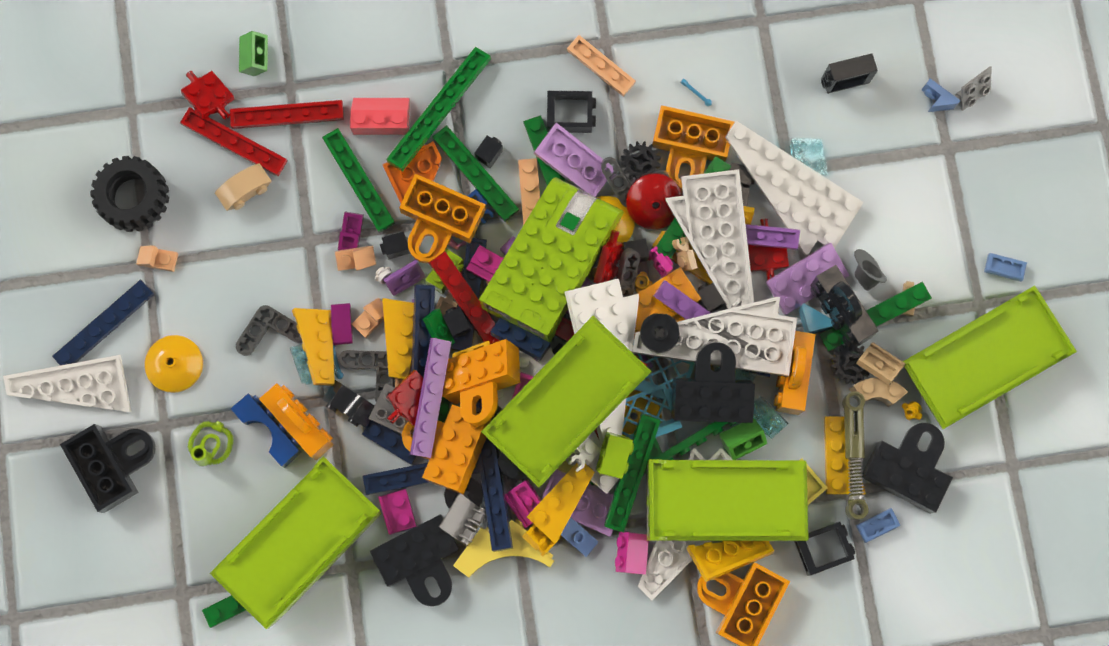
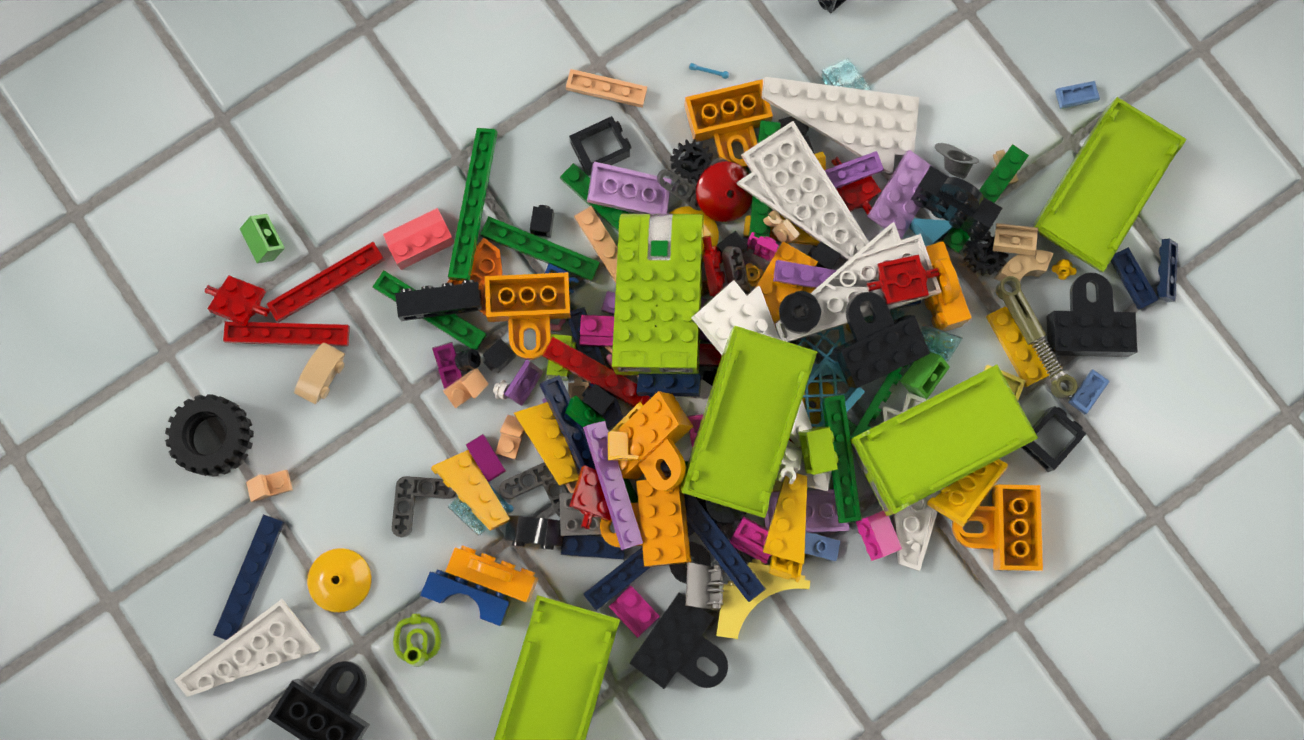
camera: 30 degrees left, 0 degrees up
(368, 236) = (467, 360): none -> black wheel
(369, 175) = (439, 300): none -> black brick
(450, 368) = (619, 447): none -> yellow bracket
(760, 348) = (902, 279): none -> red plate
(969, 448) = (1133, 278): none -> dark blue plate
(1003, 457) = (1168, 270): none -> dark blue plate

